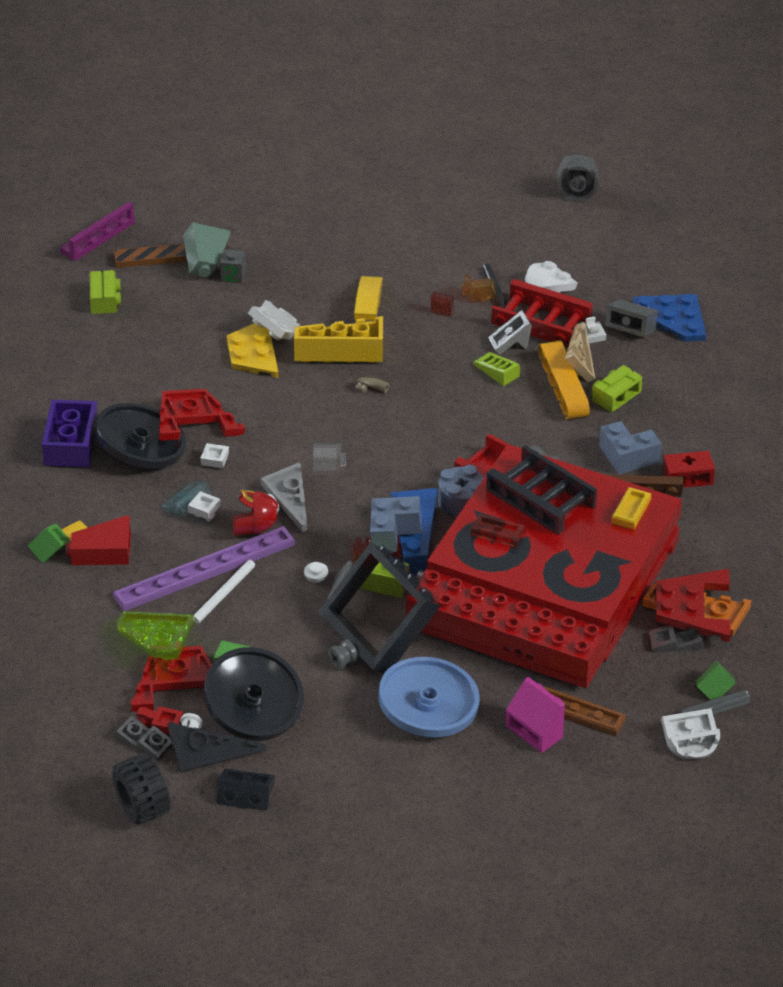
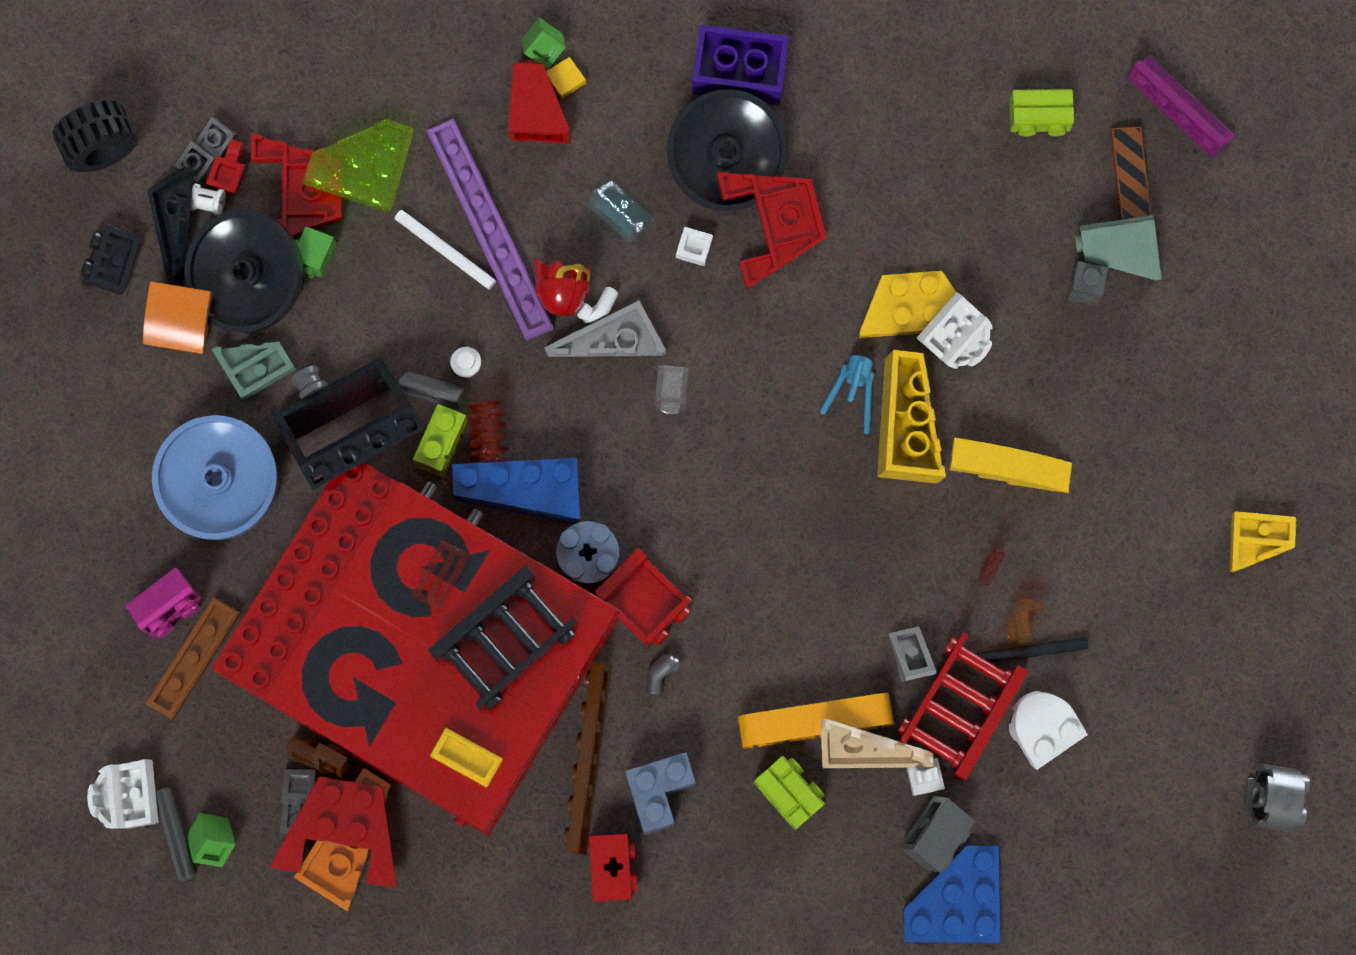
camera: 90 degrees right, 35 degrees up
(204, 506) = (589, 227): white tile -> none
(294, 737) = (177, 317): none -> orange slope
(306, 370) = (857, 373): none -> dark azure plant
(331, 690) = (253, 366): none -> sand green wing
(374, 383) = (830, 451): dark tan arm -> none
(393, 518) = (496, 441): sand blue brick -> none
(405, 194) = (1259, 538): none -> yellow wing
(502, 370) = (835, 647): lime slope -> none
(644, 617) = (324, 759): none -> reddish brown plate

